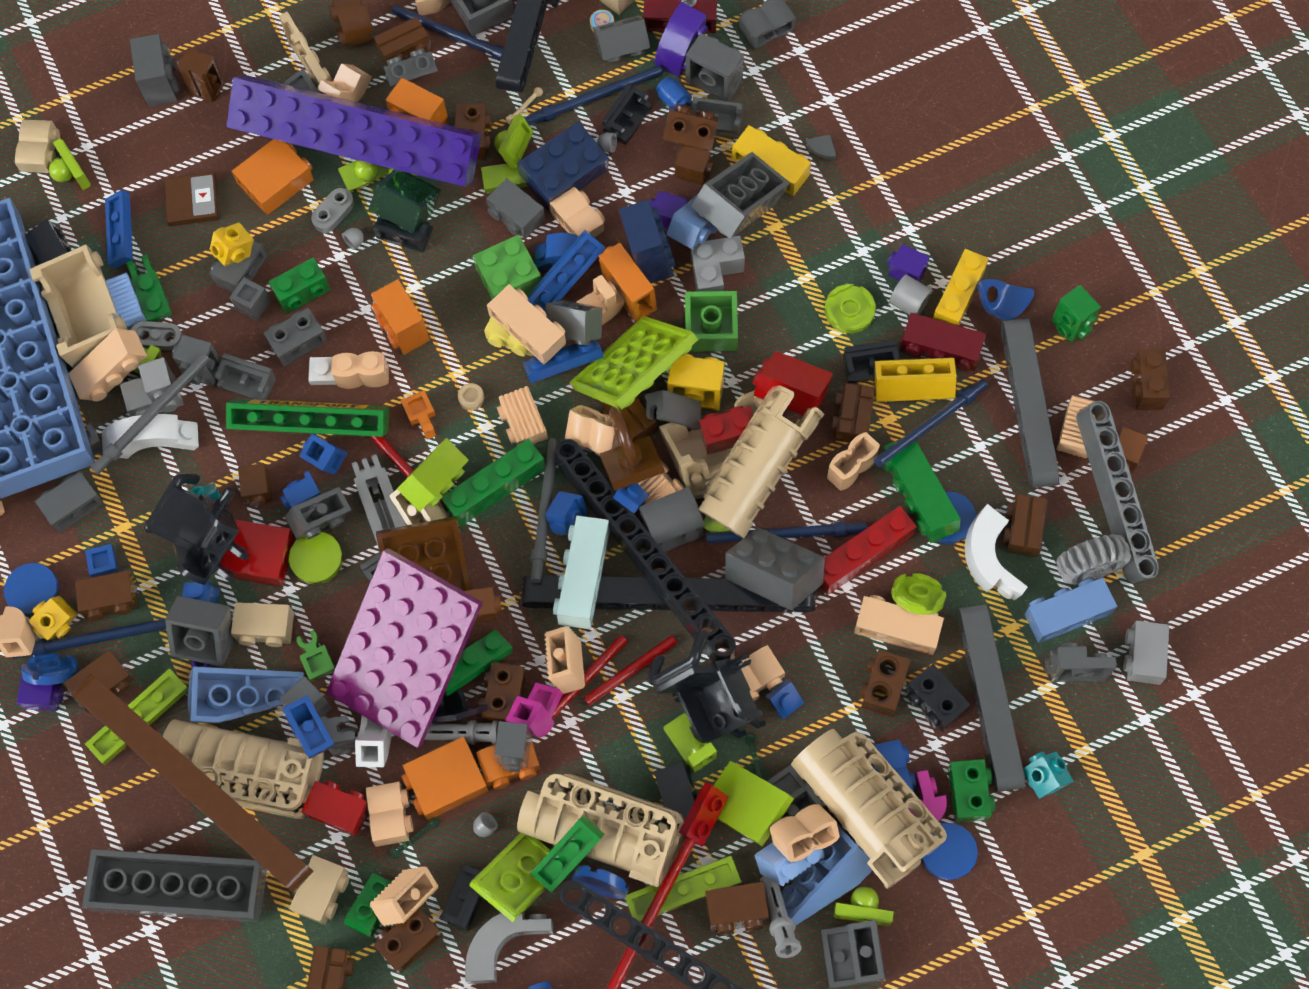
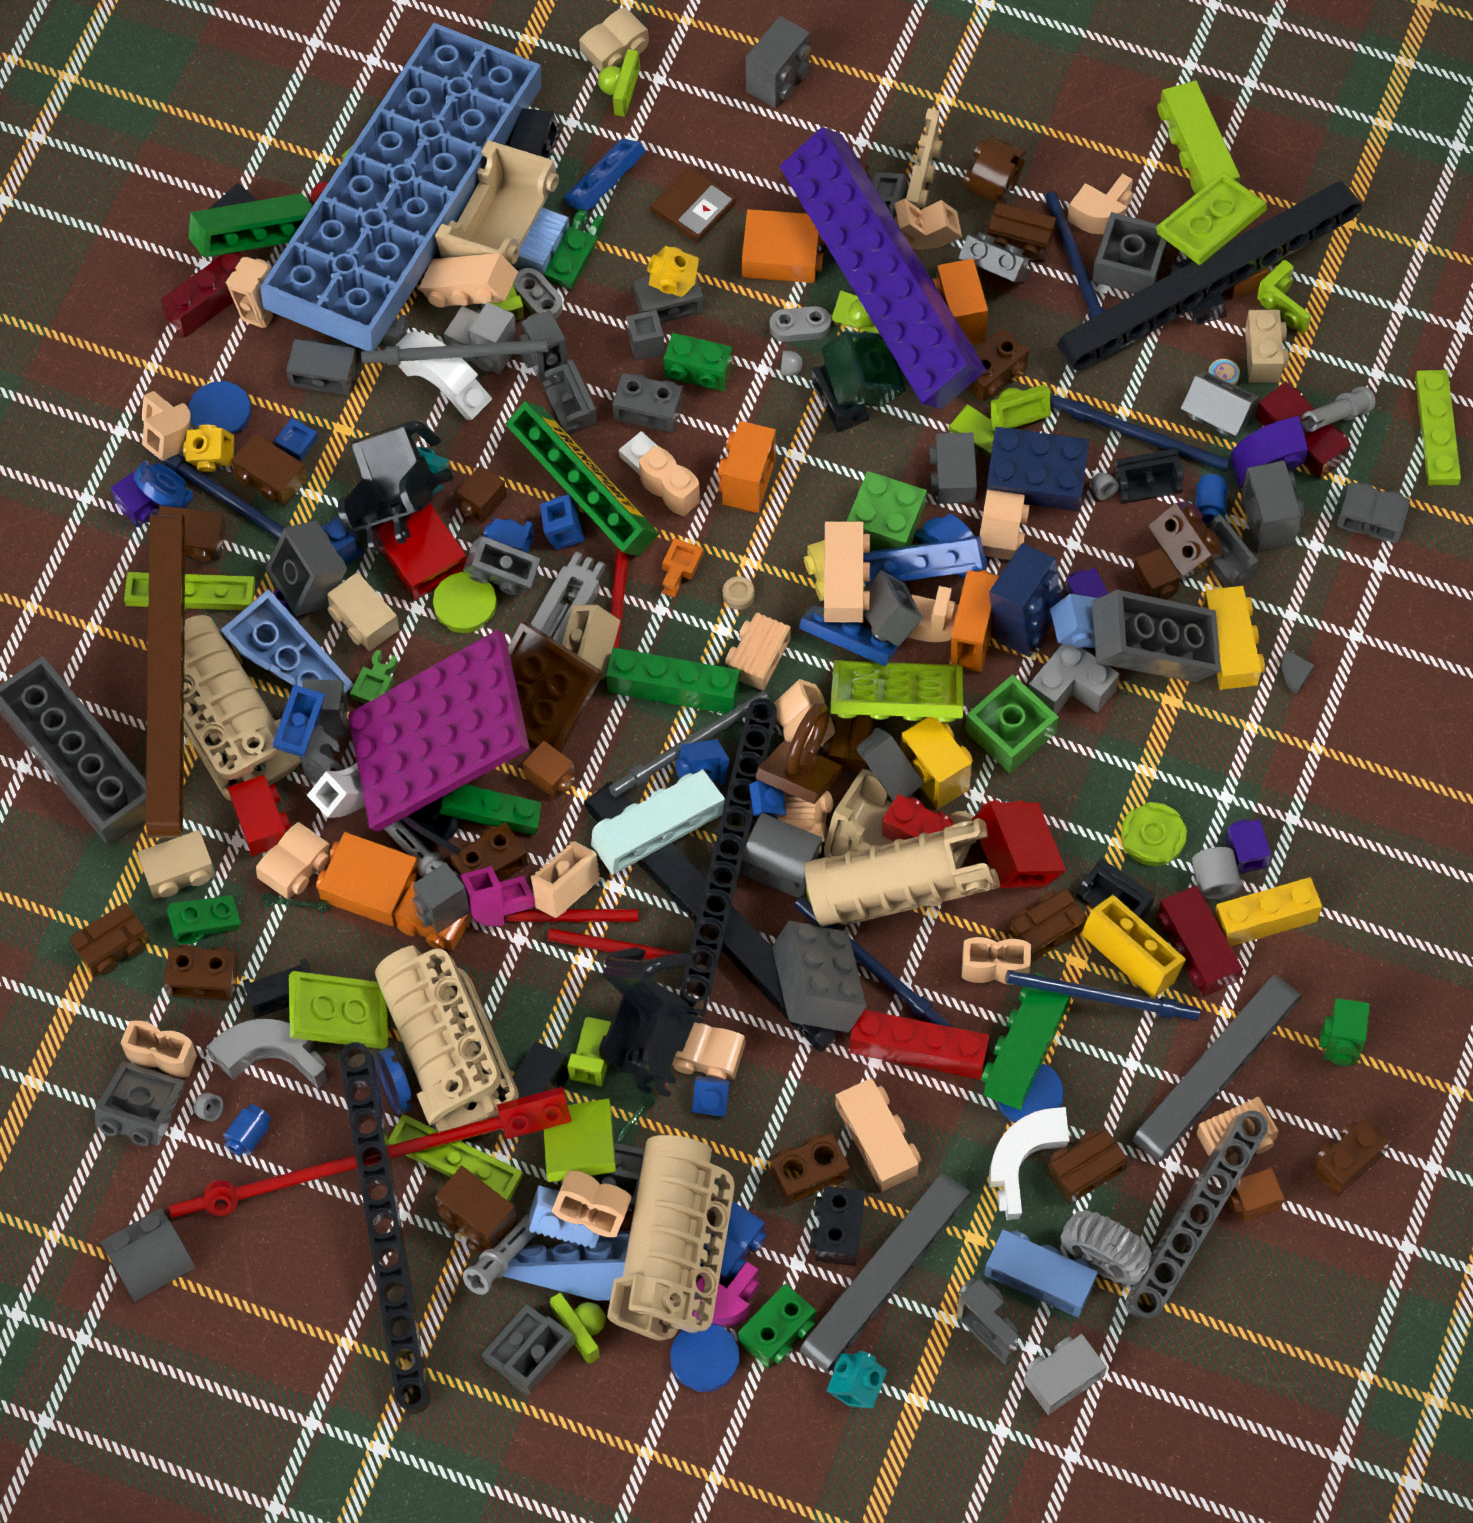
camera: 45 degrees right, 5 degrees down
(200, 74) = (812, 100): reddish brown brick -> none
(404, 896) = (232, 933): light nougat brick -> none
(434, 476) = (625, 623): lime brick -> none
(484, 825) = (358, 947): light grey hinge -> none
(536, 93) = (1094, 384): tan hinge -> none
(567, 853) = (389, 1024): green plate -> none
(918, 594) = (922, 1125): lime tile -> none
(1010, 299) = (1304, 969): blue piece -> none

